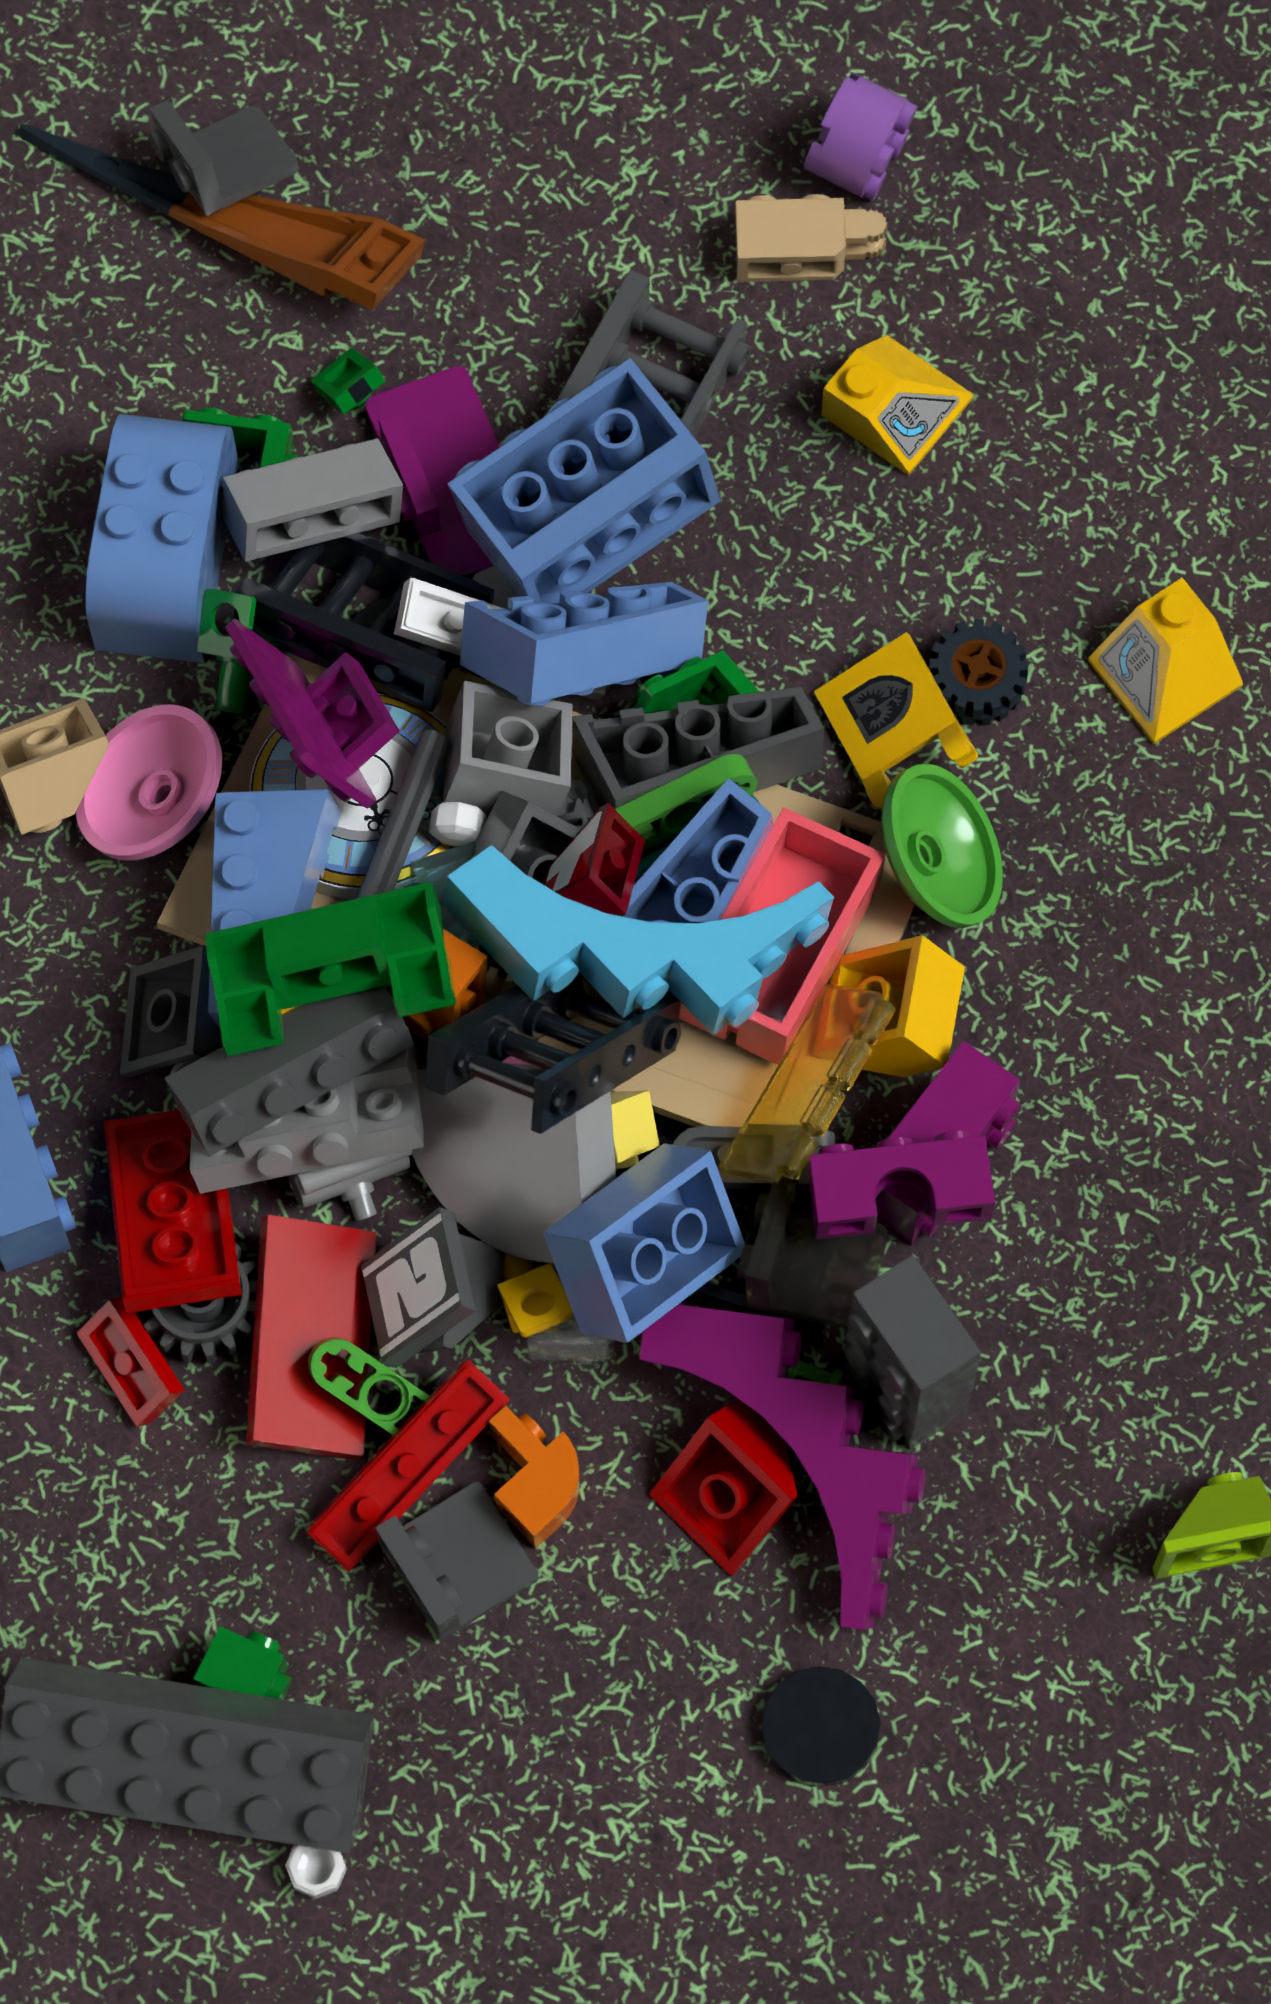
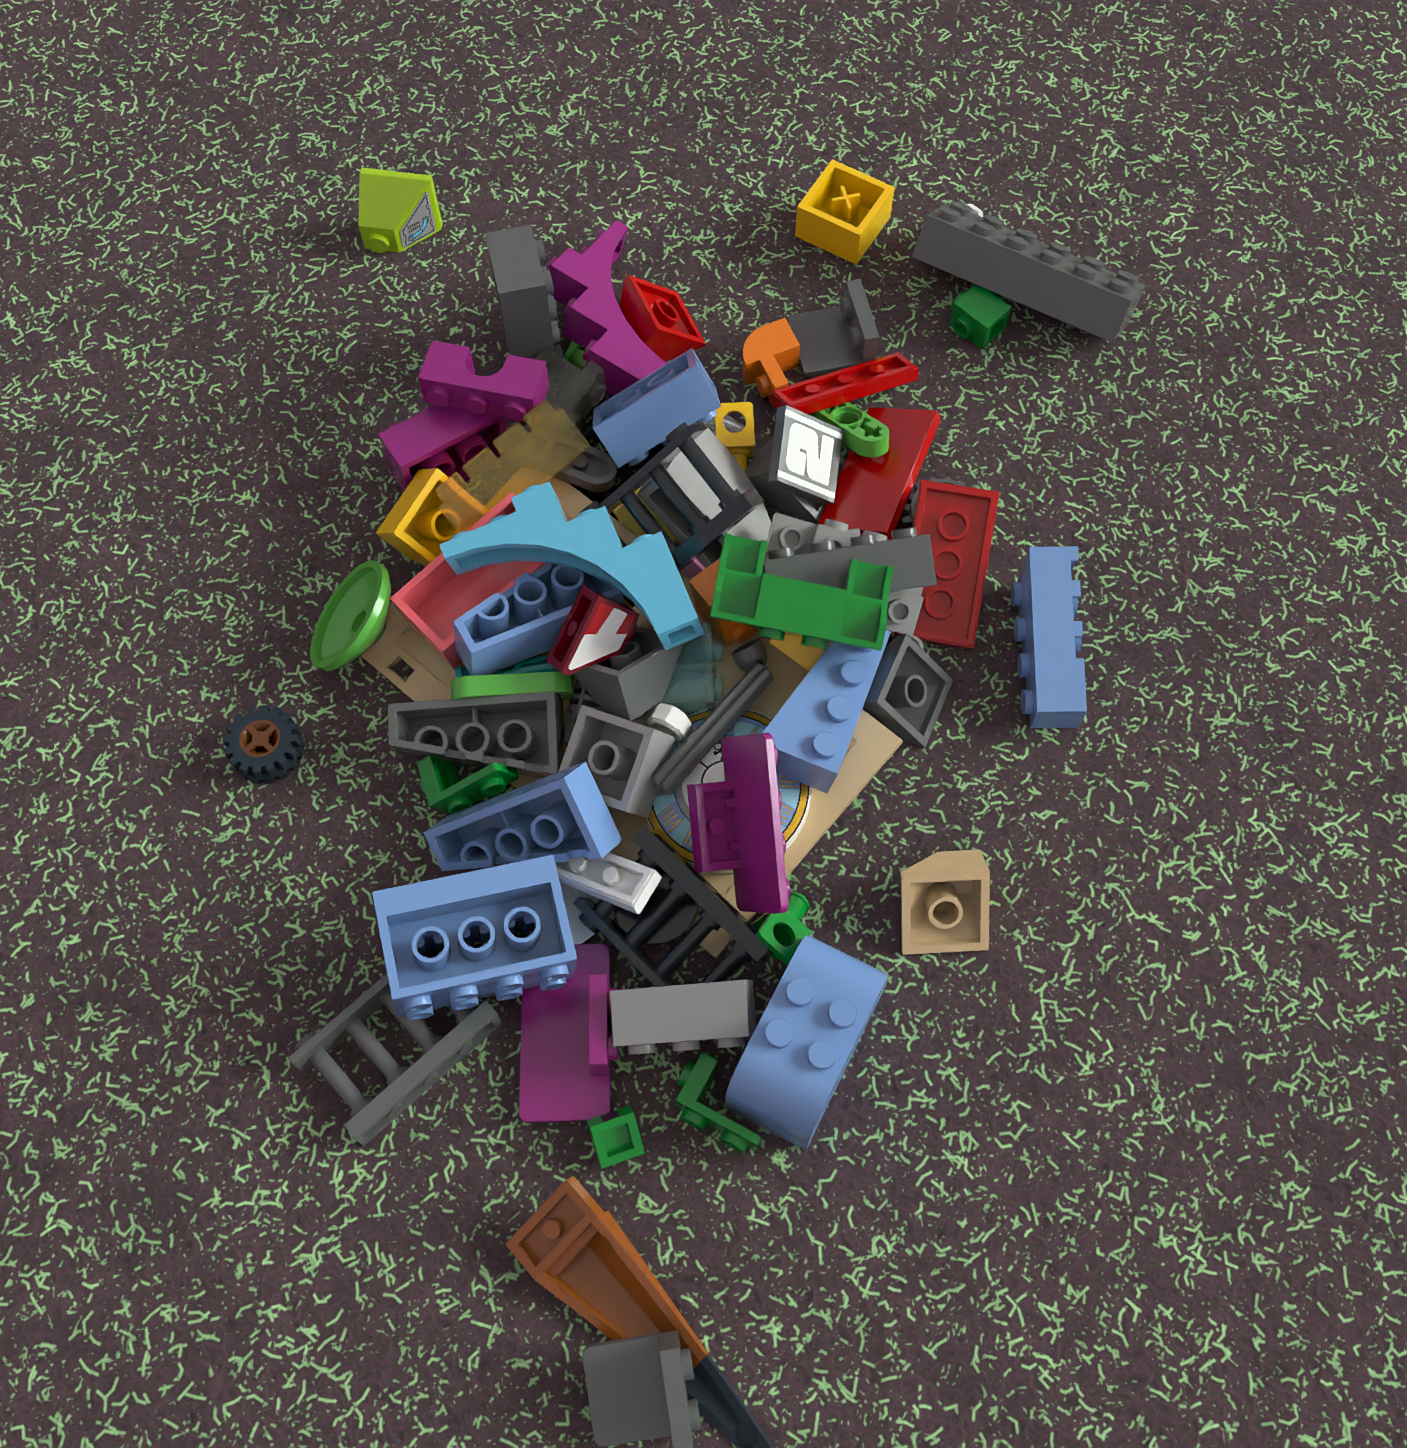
camera: 160 degrees left, 5 degrees down
(130, 1362) = (993, 476): red plate -> none
(151, 783) = (894, 839): bright pink dish -> none
(512, 1787) = (844, 211): none -> yellow brick
(803, 237) = (210, 1130): tan hinge -> none
(821, 1726) = (659, 207): black tile -> none
(860, 136) = (116, 1194): medium lavender brick -> none
(890, 711) = (337, 734): yellow flag -> none
(893, 402) = (212, 973): yellow slope -> none
(1167, 661) = (135, 712): yellow slope -> none

